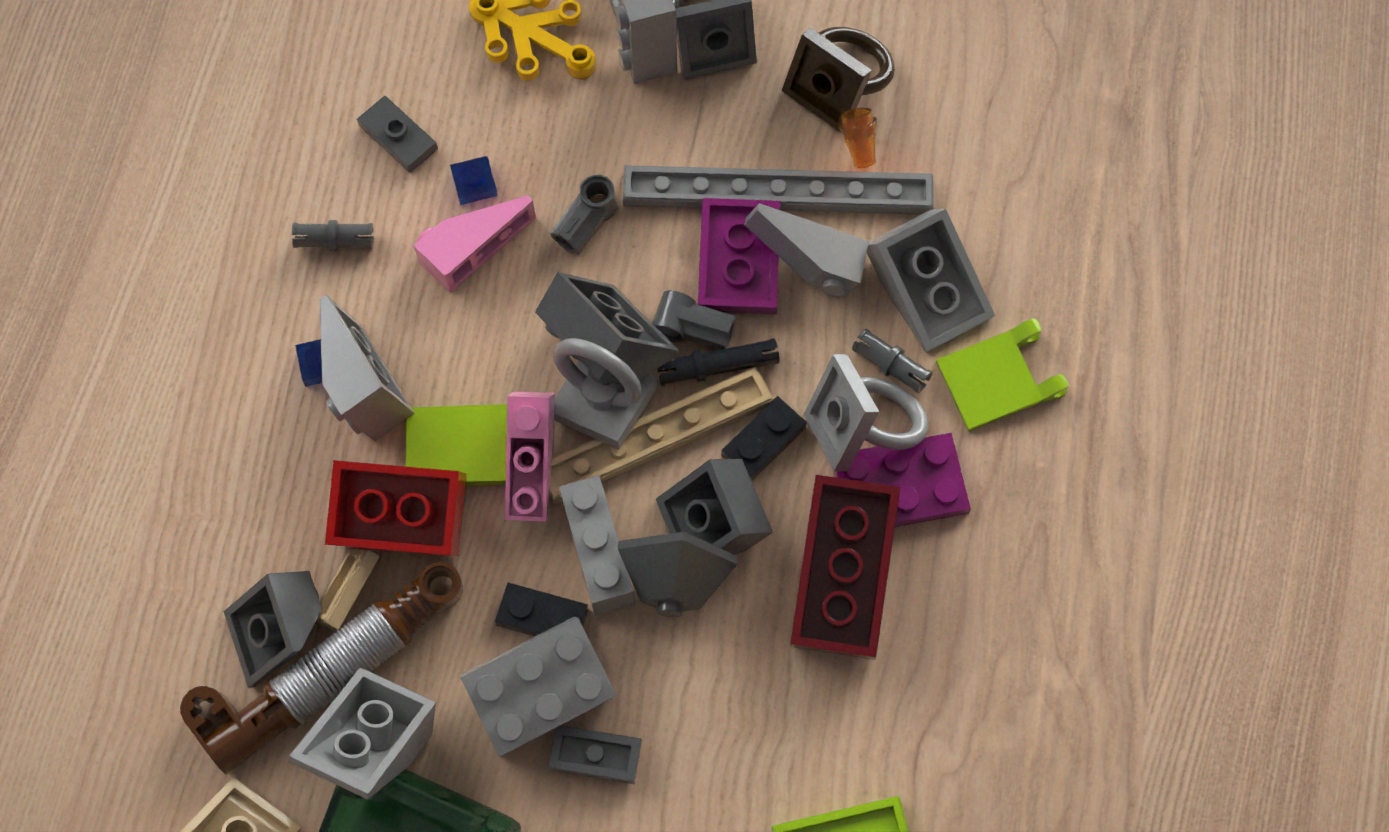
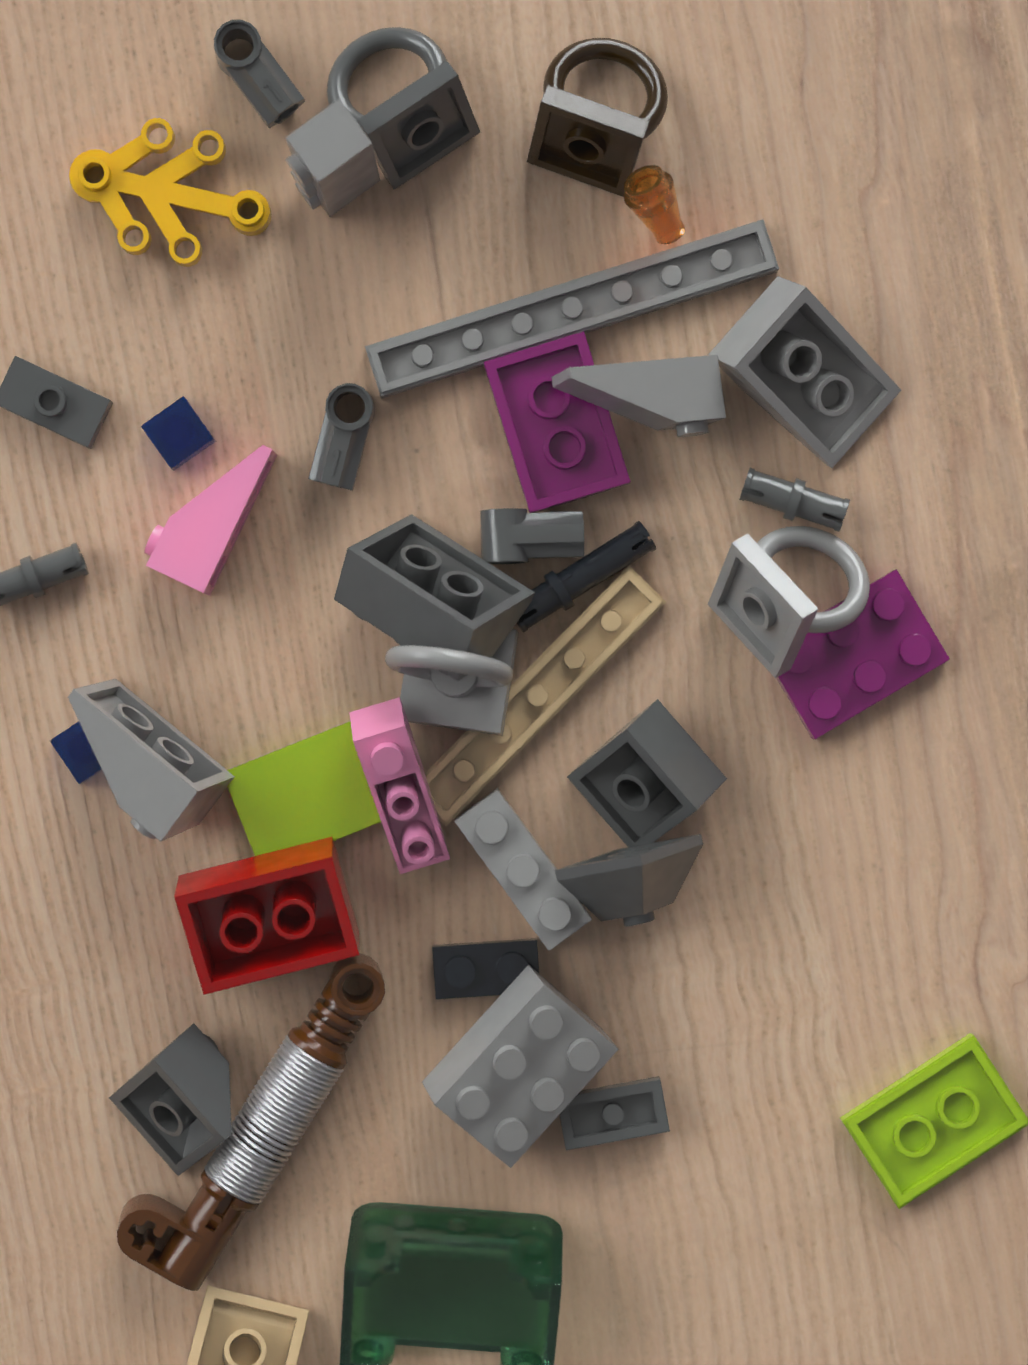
camera: 25 degrees left, 20 degrees up
(345, 587) = (244, 1029): tan tile -> none
(367, 734) = (349, 1207): light grey slope -> none
(765, 437) = (671, 653): black plate -> none
(845, 567) = (831, 799): dark red brick -> none
(993, 378) = (925, 476): lime flag -> none

